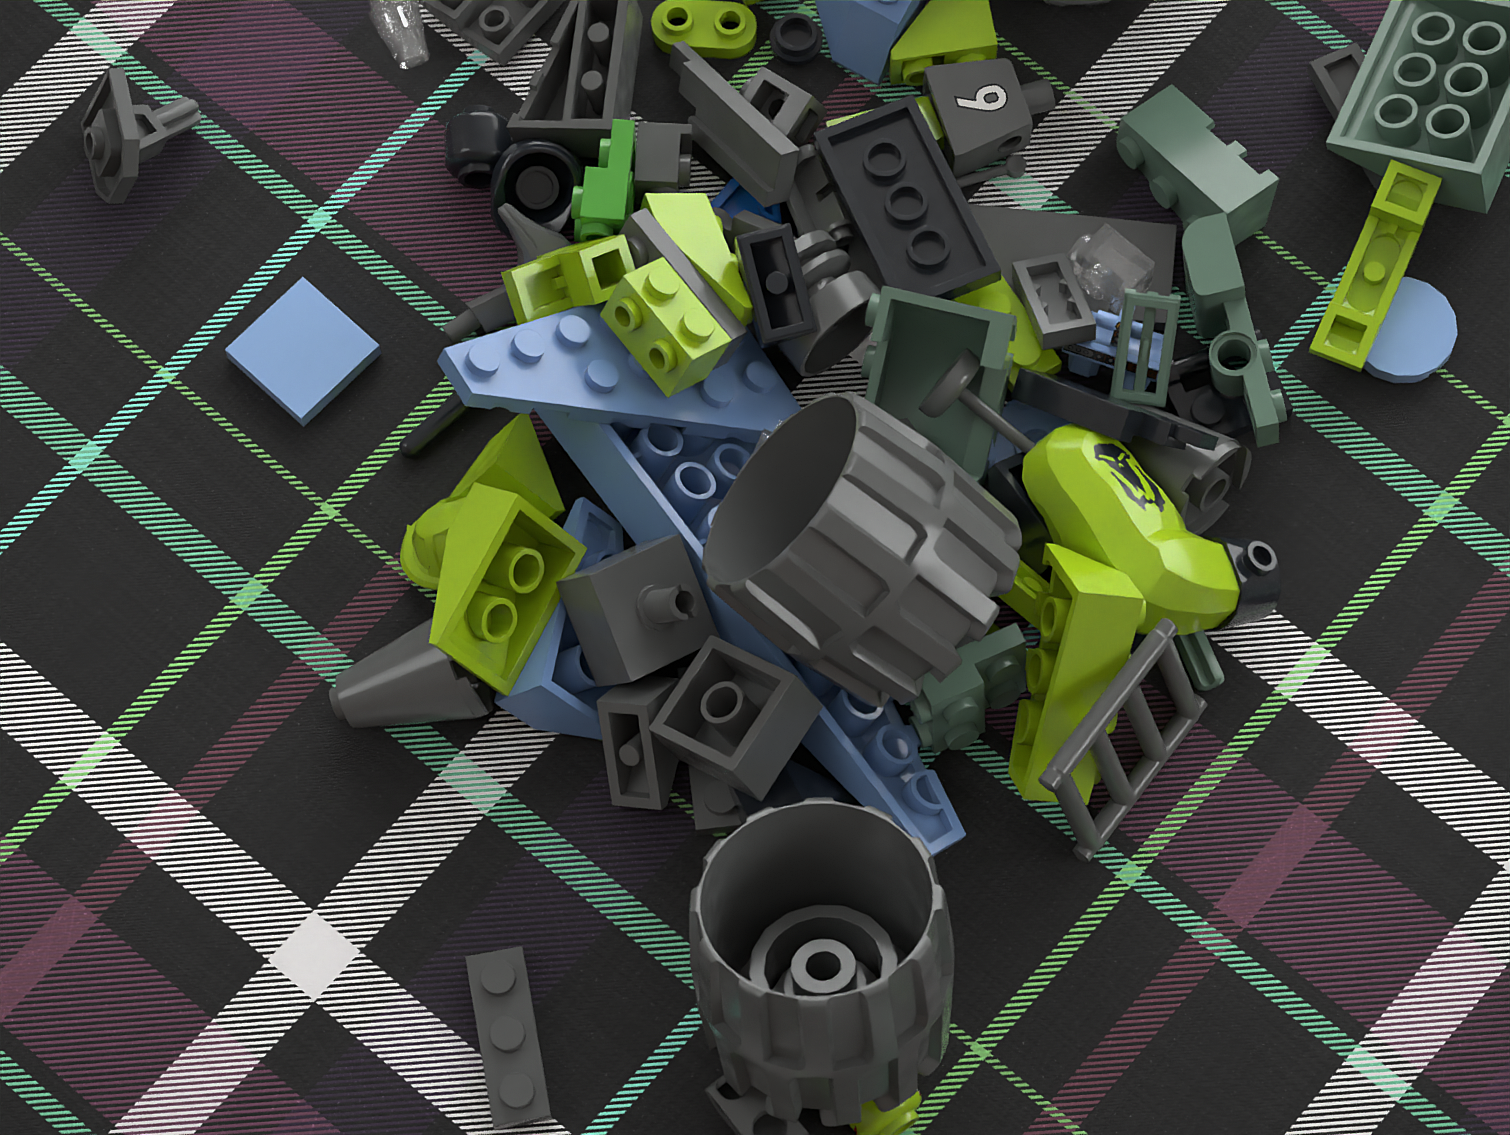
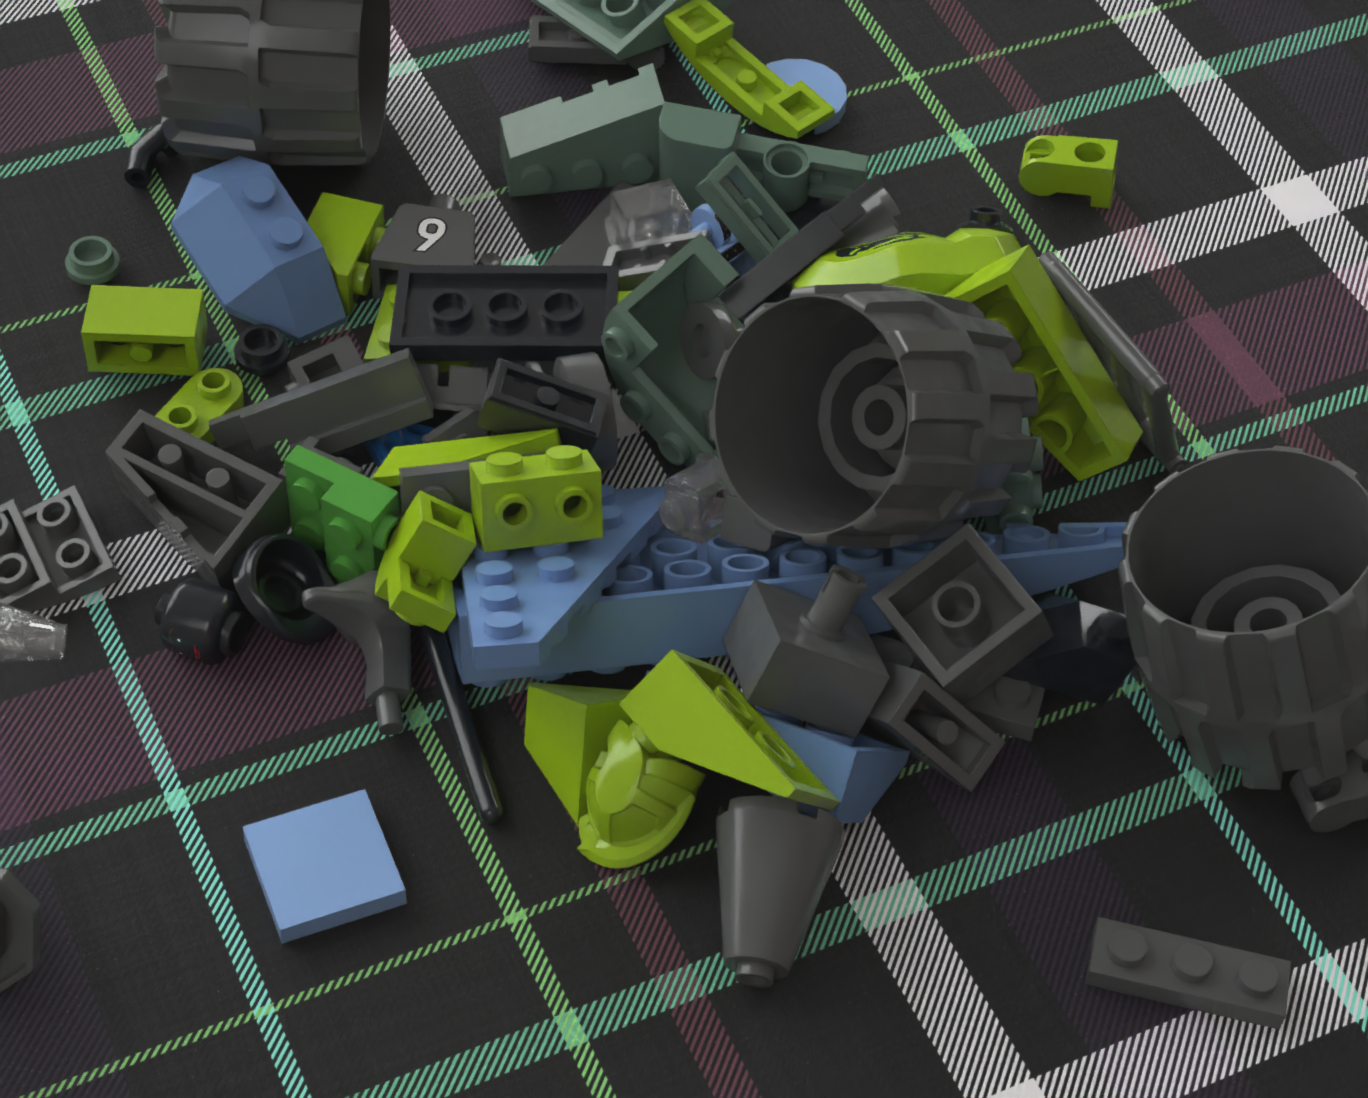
camera: 70 degrees left, 20 degrees down
(1436, 623) = (1070, 167): none -> lime leg

